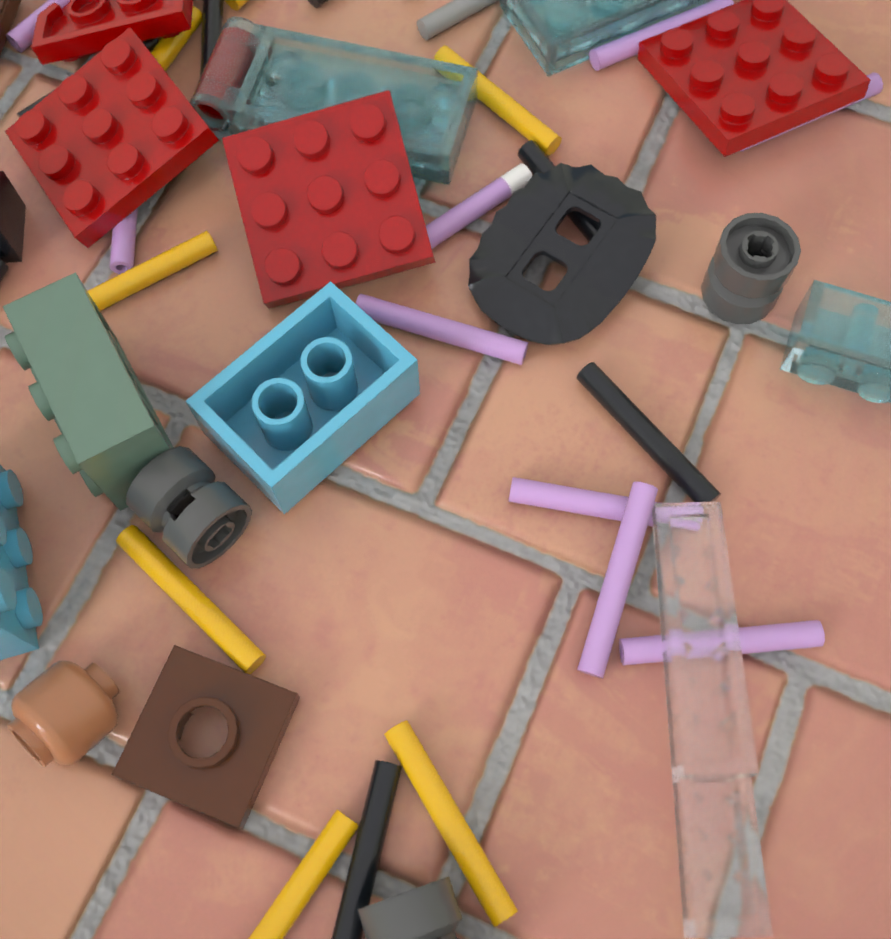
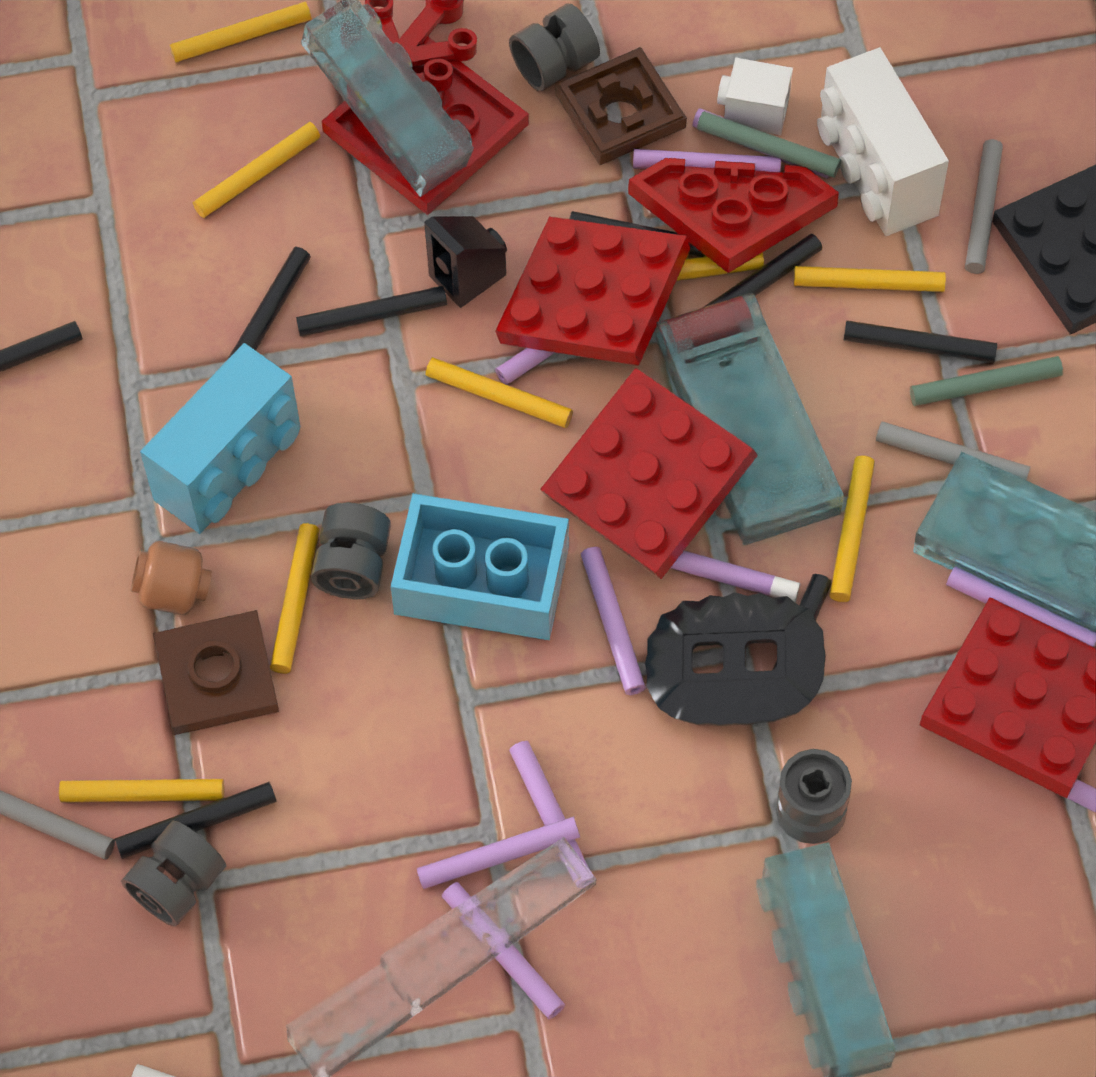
camera: 55 degrees right, 5 degrees down
(85, 387) = (384, 429): sand green brick -> none
(451, 824) = (262, 851): yellow bar -> none
(647, 434) = (629, 812): black bar -> none

